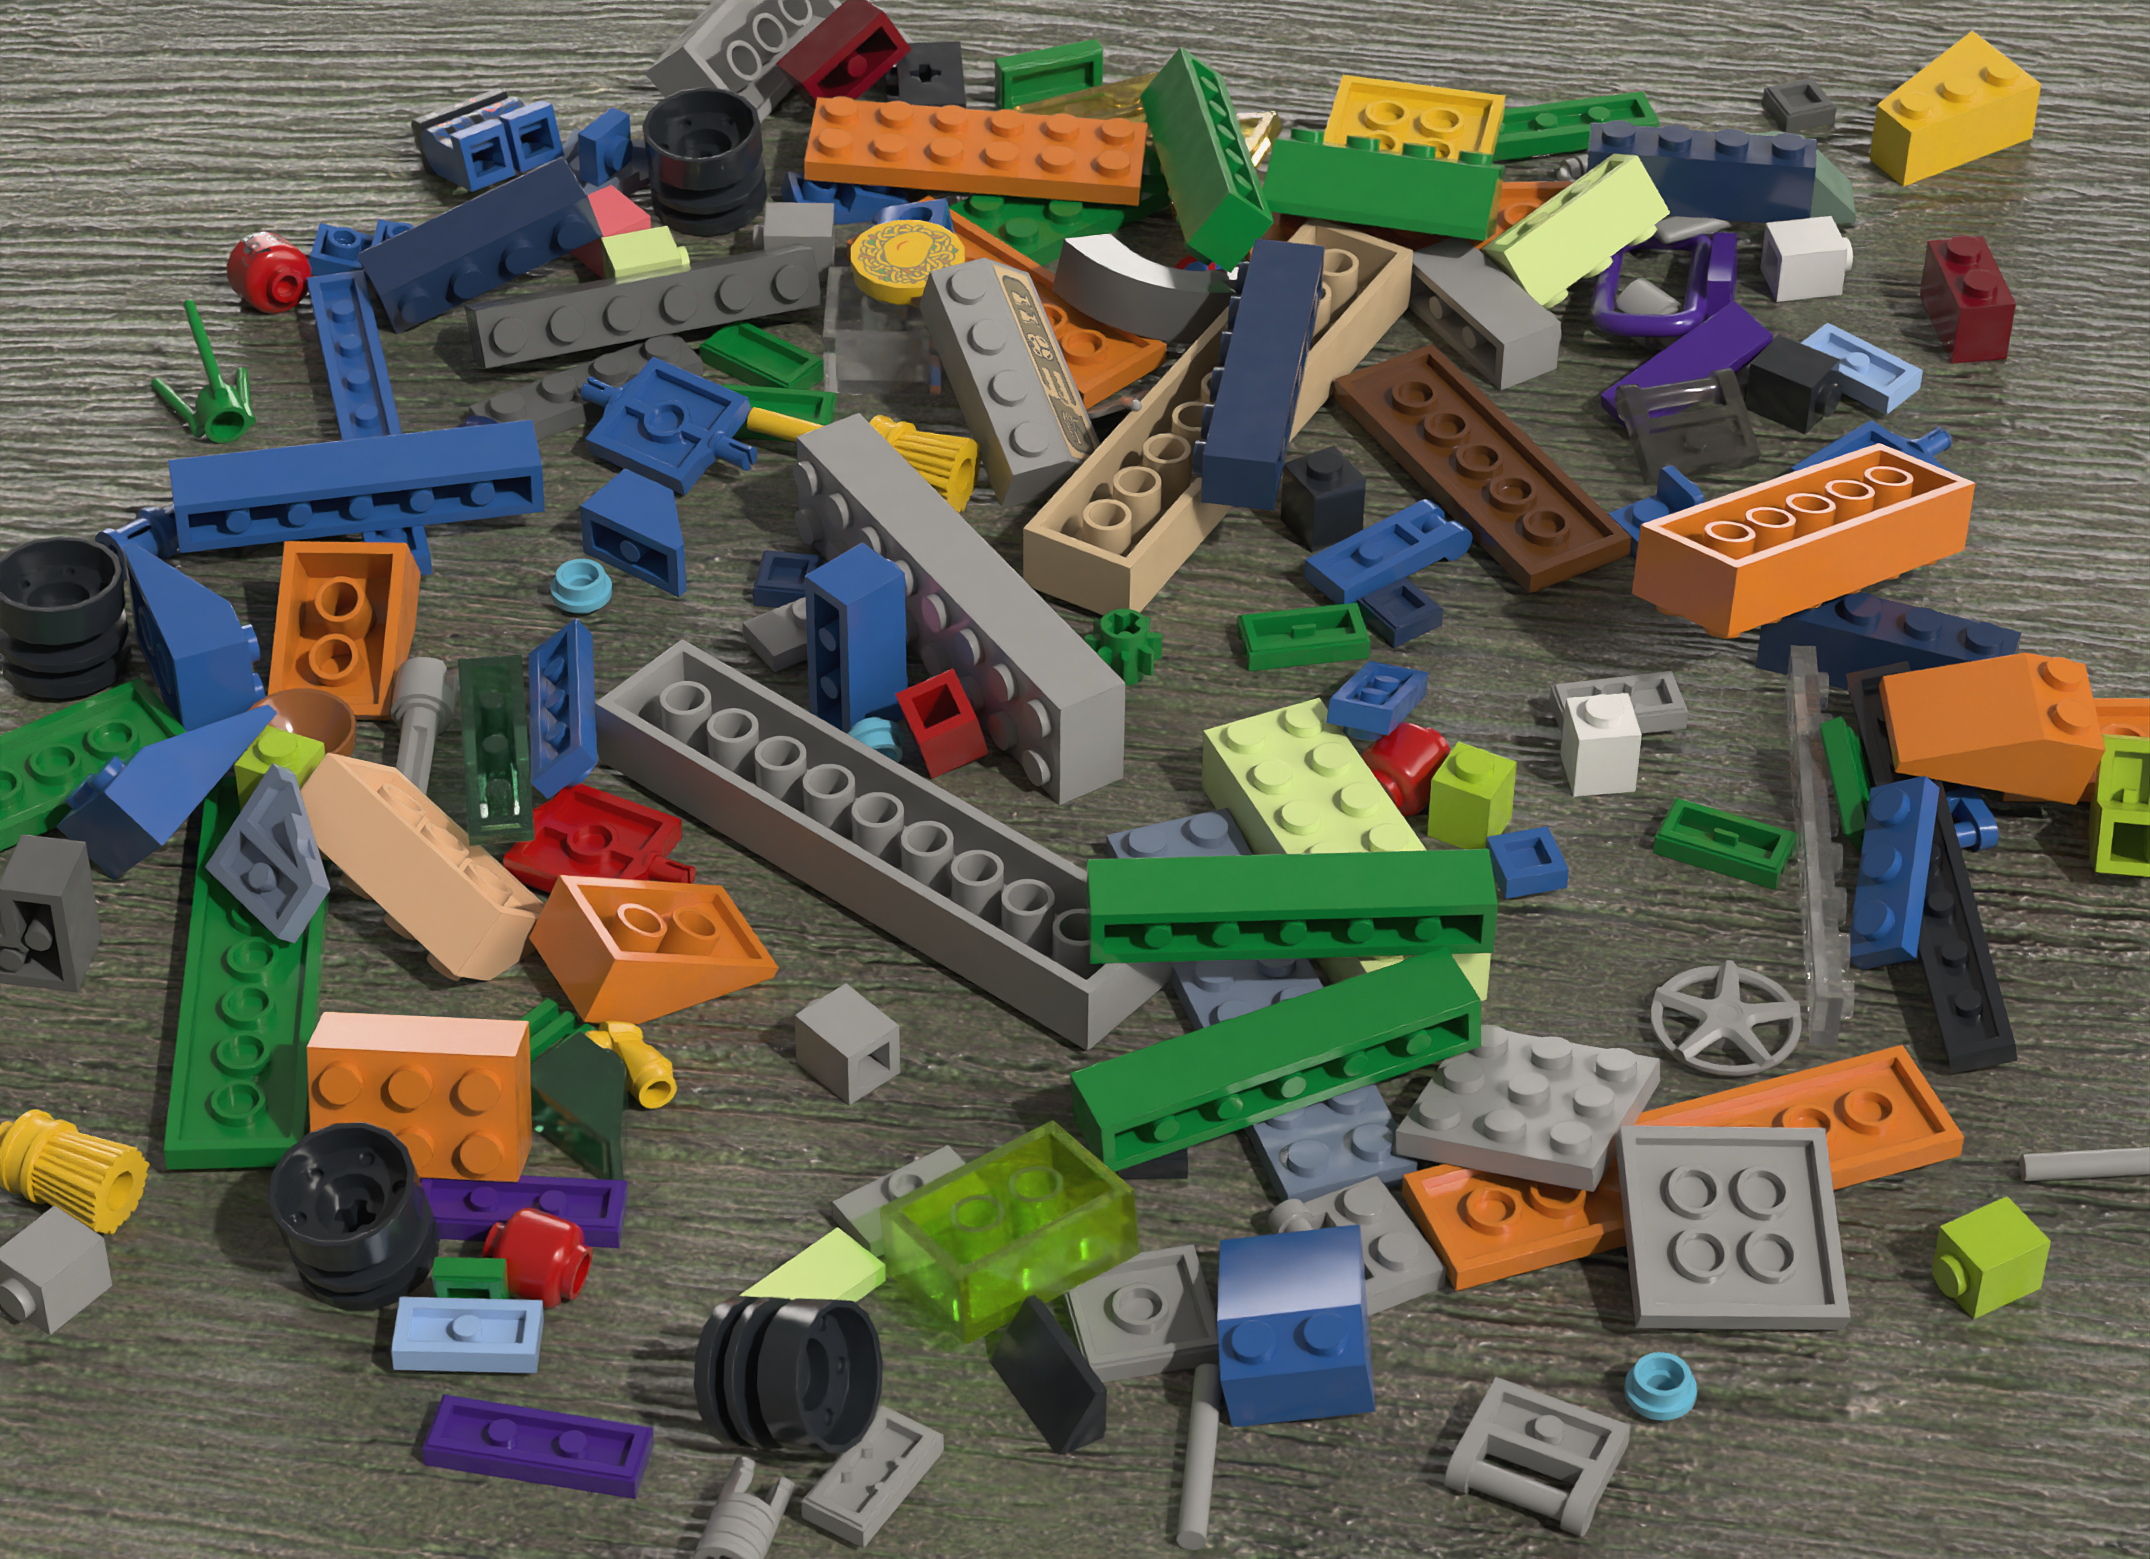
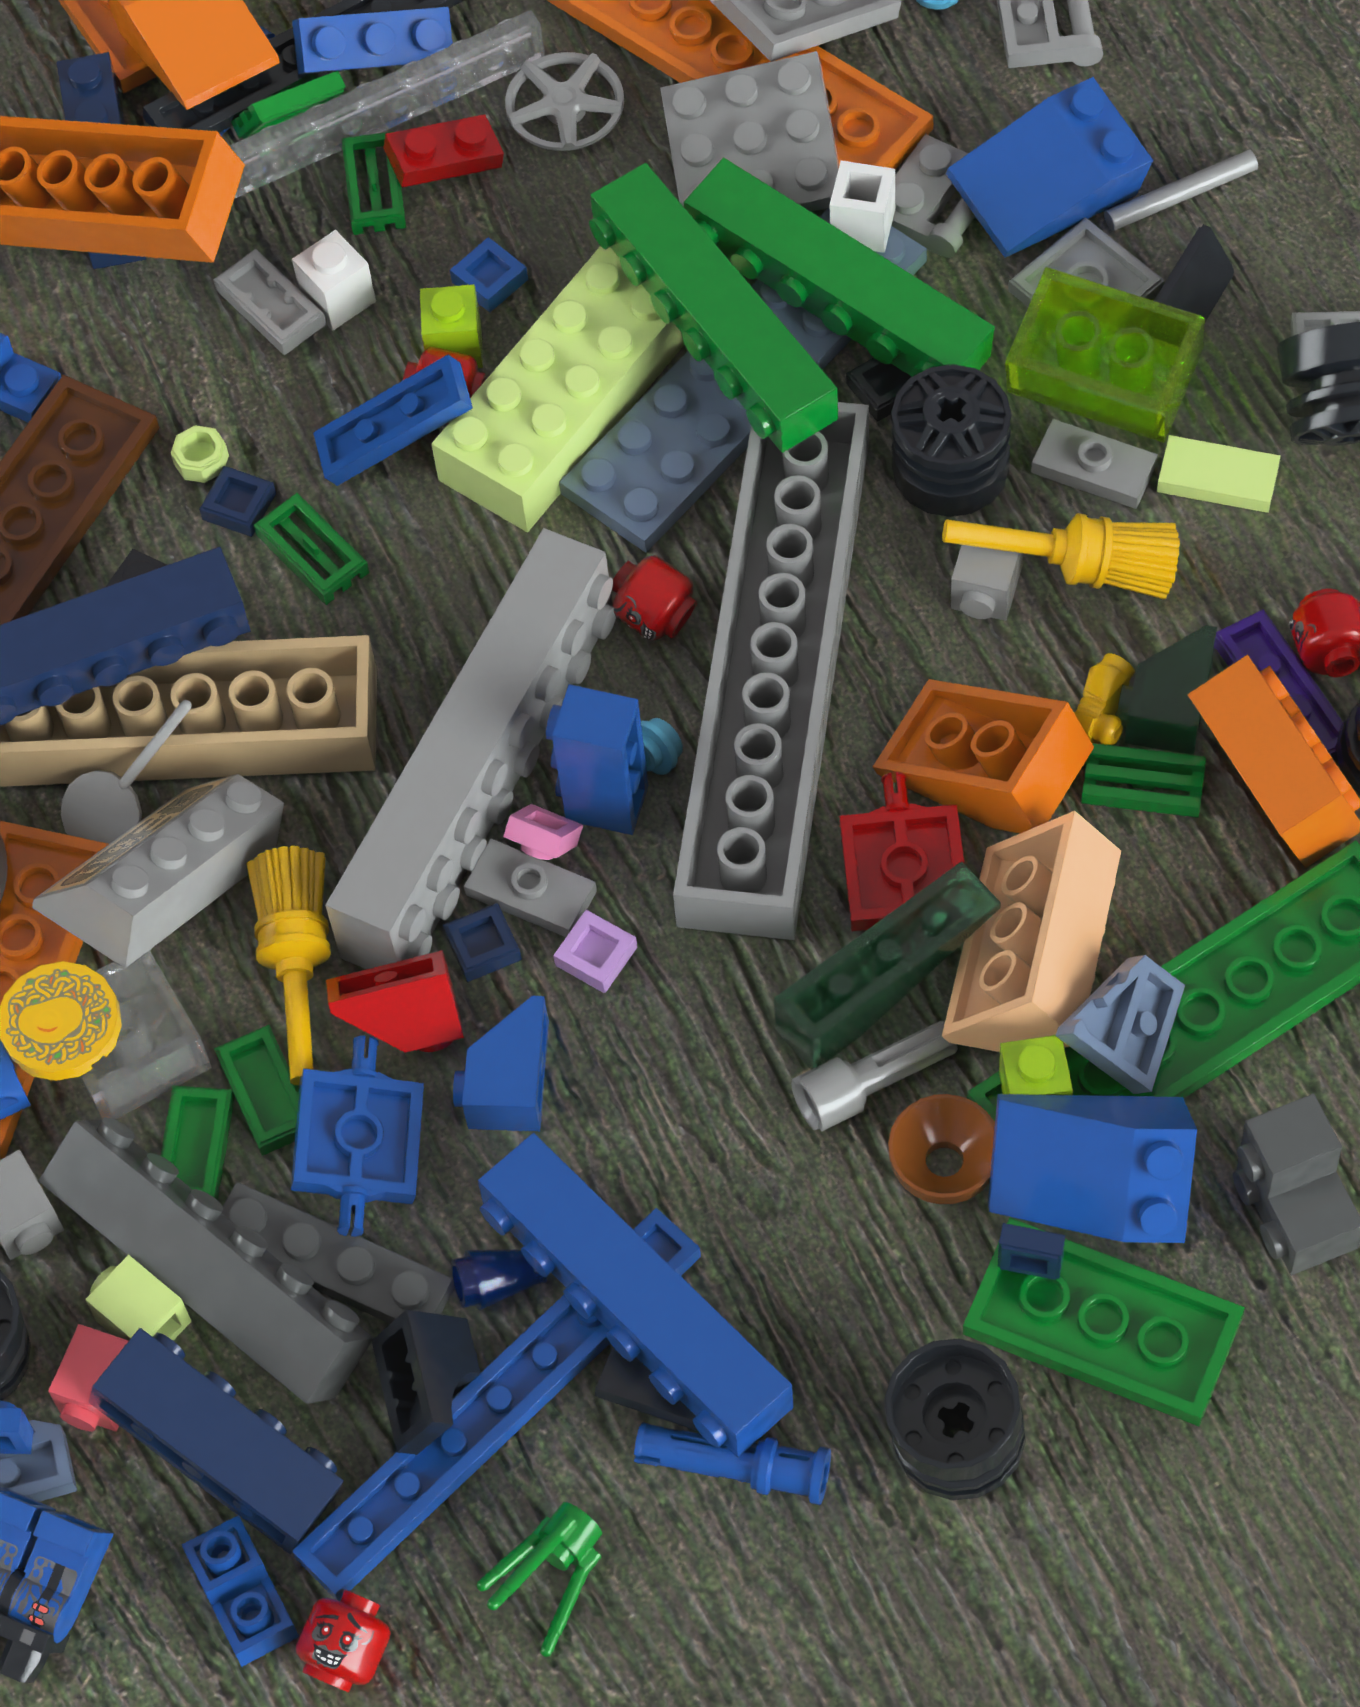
camera: 115 degrees left, 20 degrees up
(143, 714) = (1031, 1251): none -> dark blue tile
(191, 642) = (937, 1264): blue slope -> none
(345, 621) = (794, 1211): orange slope -> none
(427, 373) = (421, 1367): none -> black arch
(562, 710) = (745, 993): blue plate -> none
(581, 586) = (602, 1067): medium azure plate -> none
(707, 625) = (595, 951): none -> lavender plate
(754, 481) = (400, 1003): none -> red slope
(783, 1102) = (1089, 550): none -> yellow piece
(942, 723) = (625, 674): red brick -> none
(1008, 1061) = (951, 440): none -> black wheel
(1035, 801) = (653, 598): none -> red head
(1126, 644) = (422, 641): green gear -> none
(1343, 1102) = (864, 203): none -> white brick
(1386, 552) = (174, 530): blue plate -> none
(1470, 599) = (199, 453): none -> yellowish green tile
(1719, 894) = (443, 150): none -> red plate

